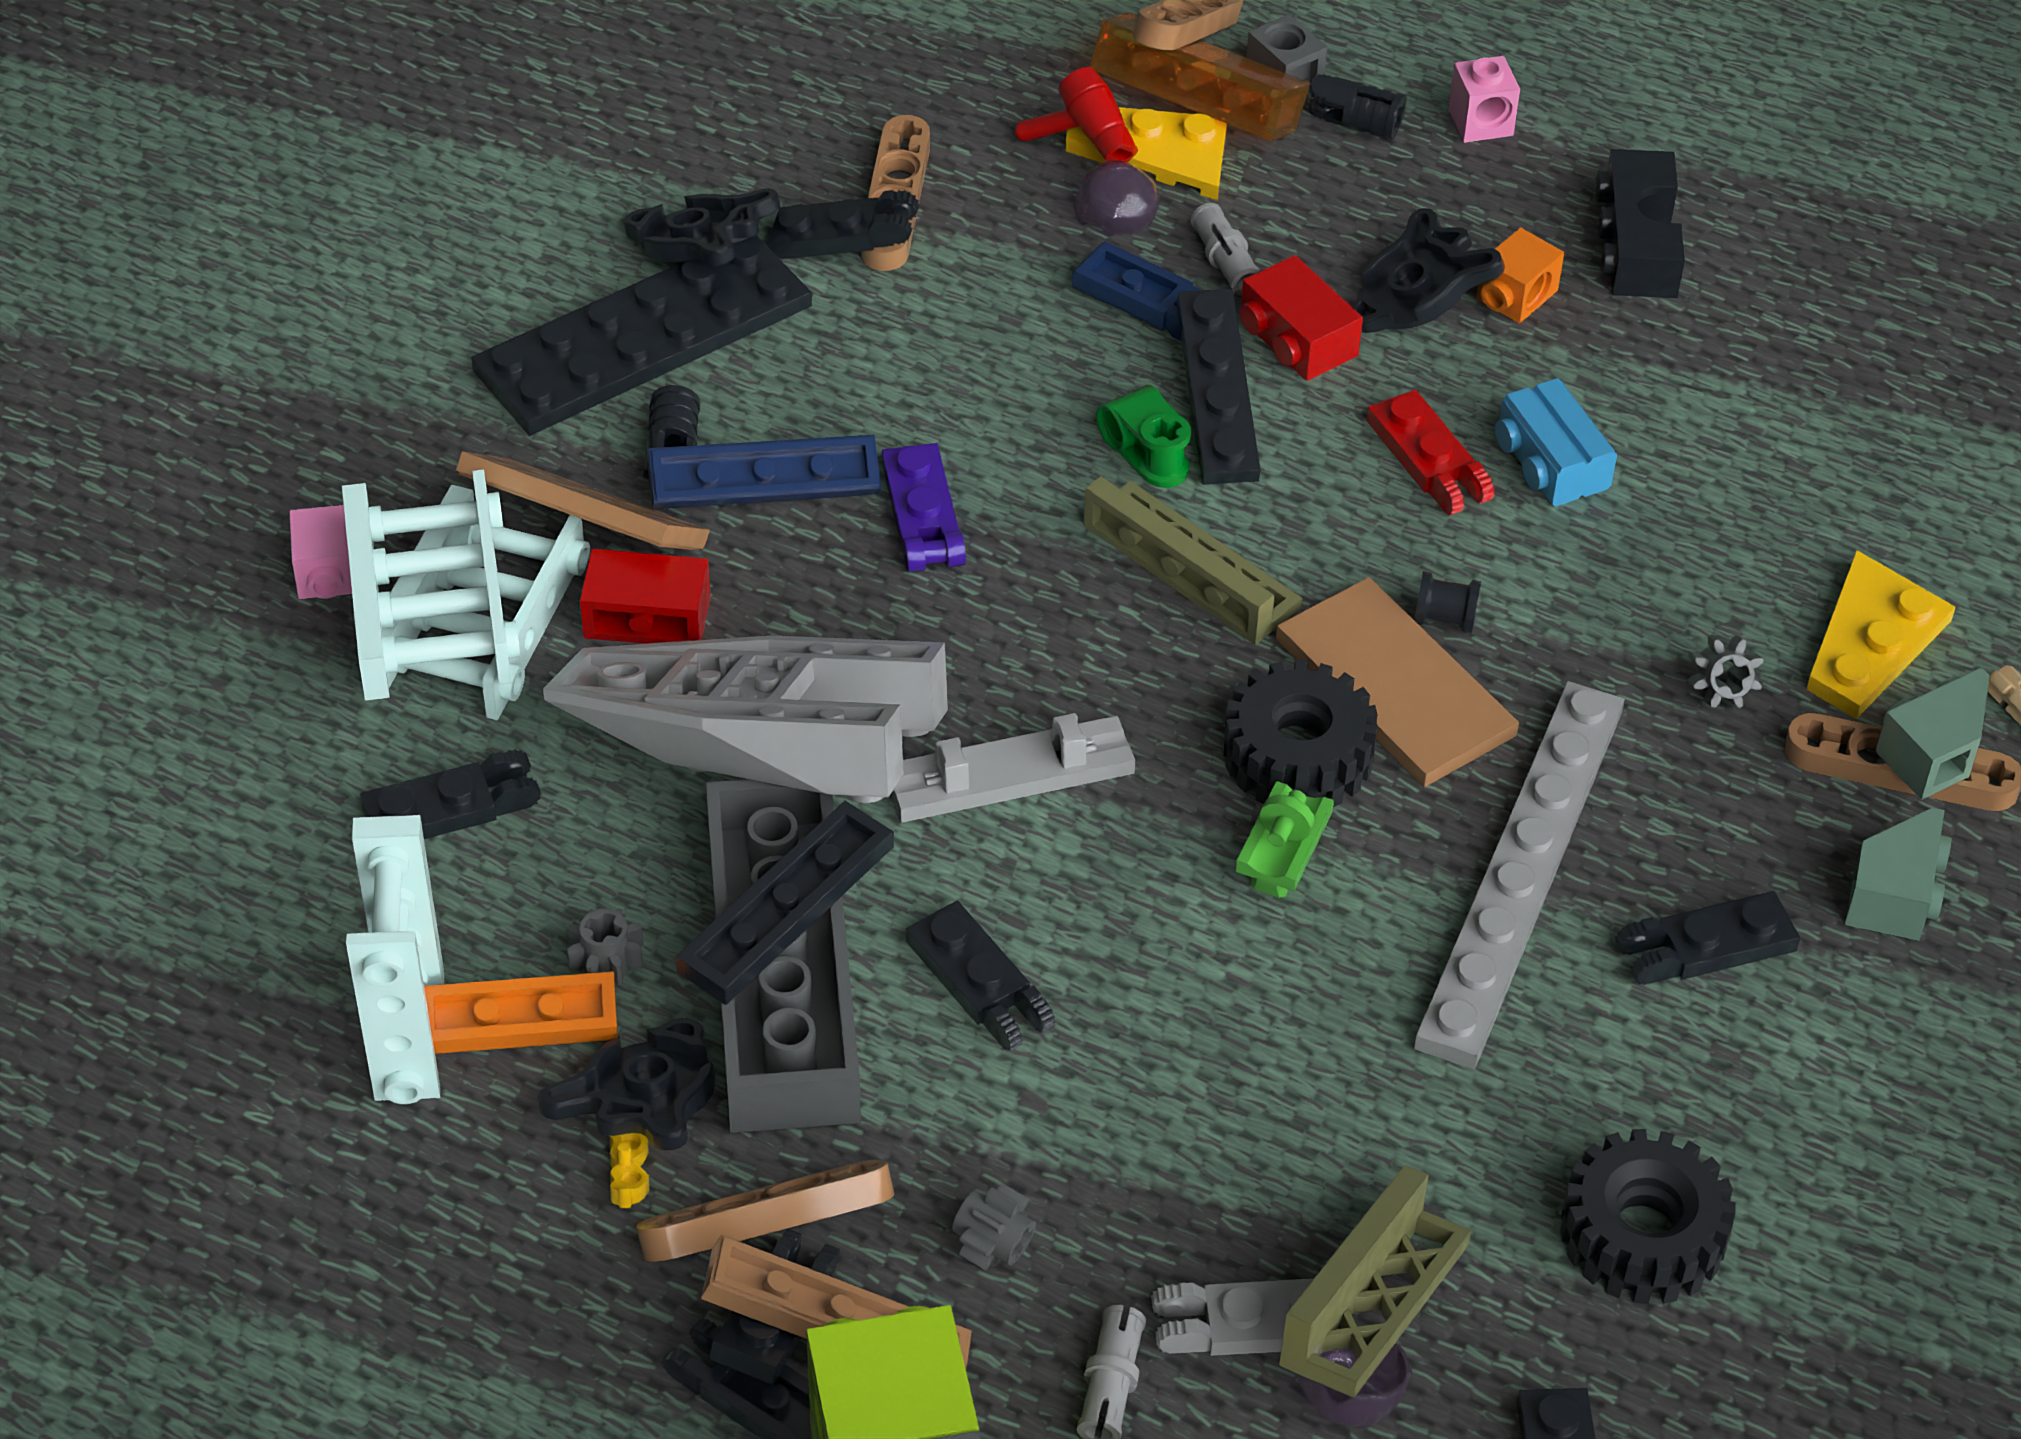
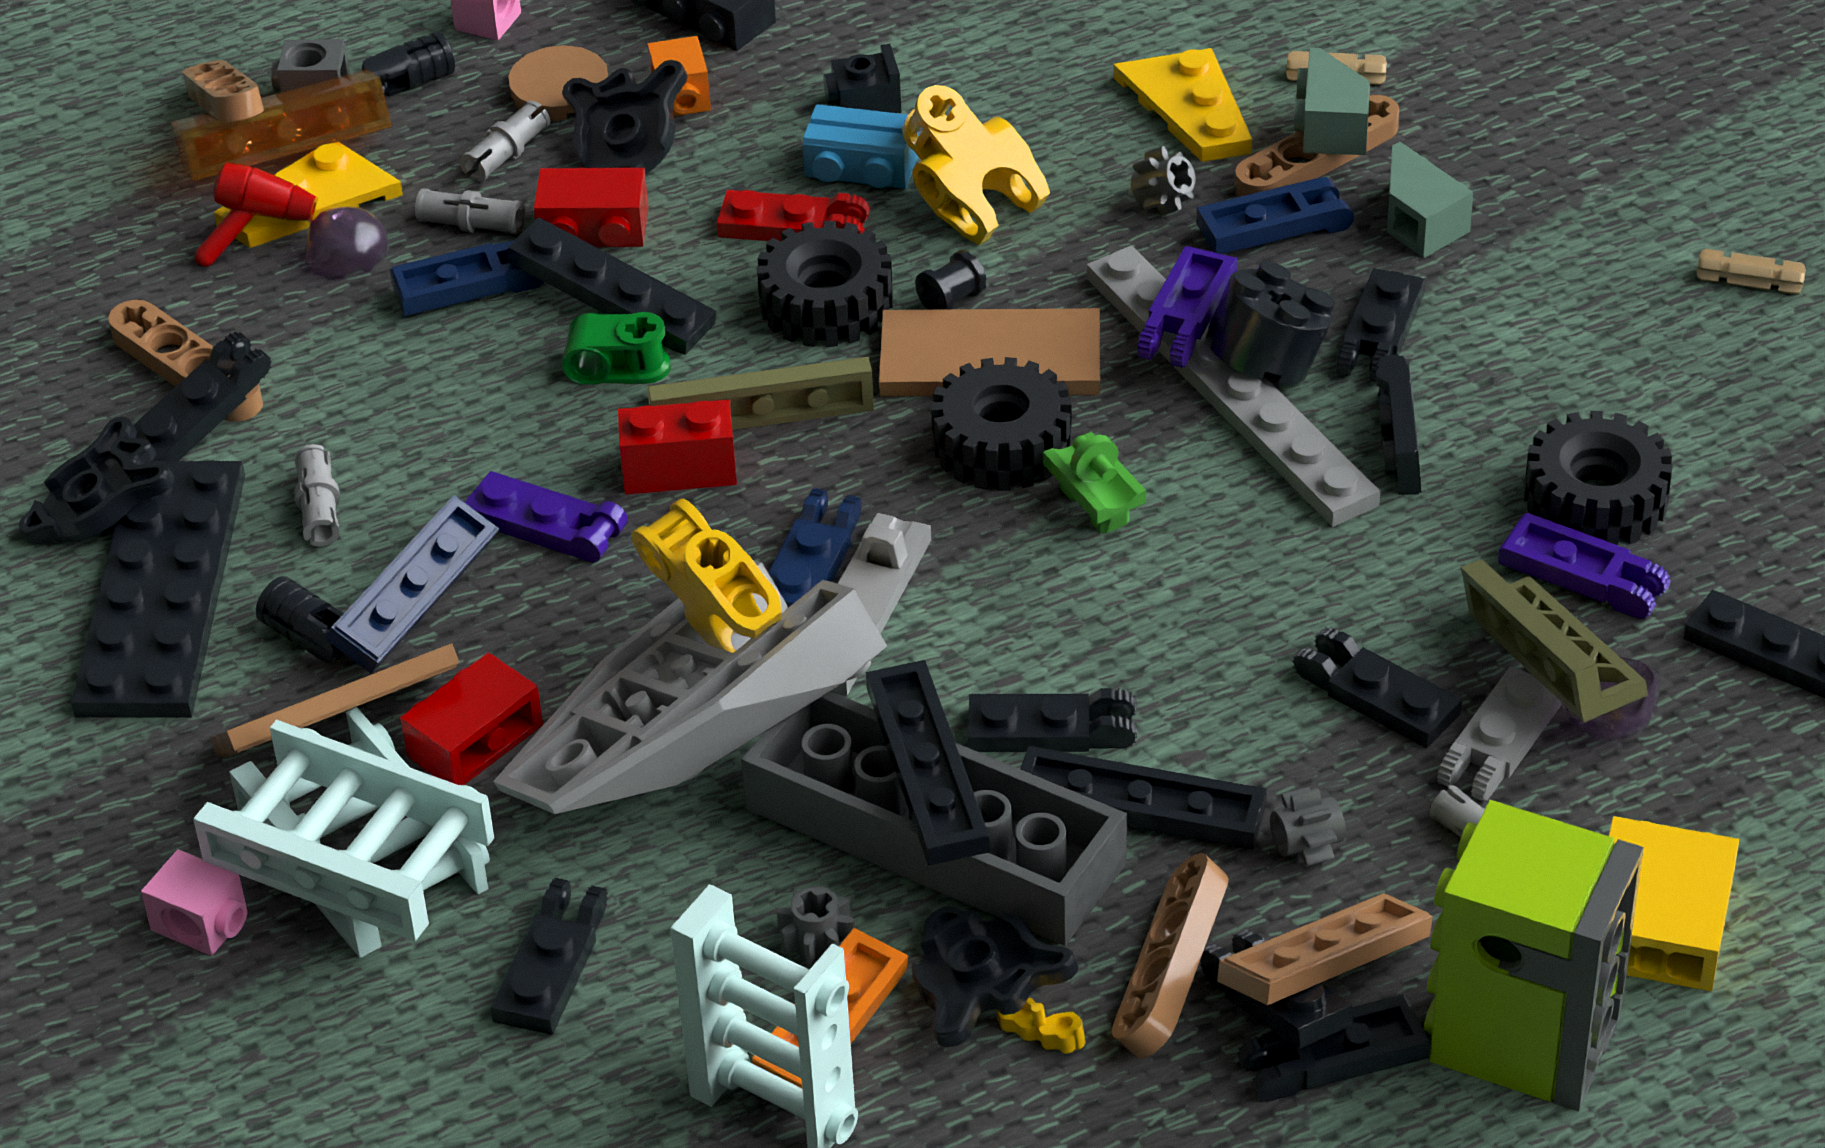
camera: 50 degrees left, 5 degrees down
(814, 357) = (316, 495): none -> light grey pin
(843, 628) = (707, 575): none -> yellow piece
(937, 1088) = (1157, 797): none -> black plate
(1033, 700) = (814, 549): none -> dark blue hinge
(1064, 539) = (677, 446): none -> red brick
(1229, 1198) = (1378, 687): none -> black hinge
(1334, 219) = (505, 141): none -> light grey pin
(1364, 490) = (819, 258): none -> black tyre
(1453, 194) = (545, 72): none -> medium nougat tile
(1525, 1262) = (1584, 565): none -> dark purple hinge
(1557, 775) = (1186, 303): none -> dark purple hinge
(1577, 1024) = (1398, 420): none -> black hinge
(1590, 849) = (1270, 323): none -> black brick
(1592, 518) = (967, 157): none -> yellow piece
(1641, 399) = (865, 82): none -> black brick
(1773, 779) = (1274, 215): none -> dark blue plate

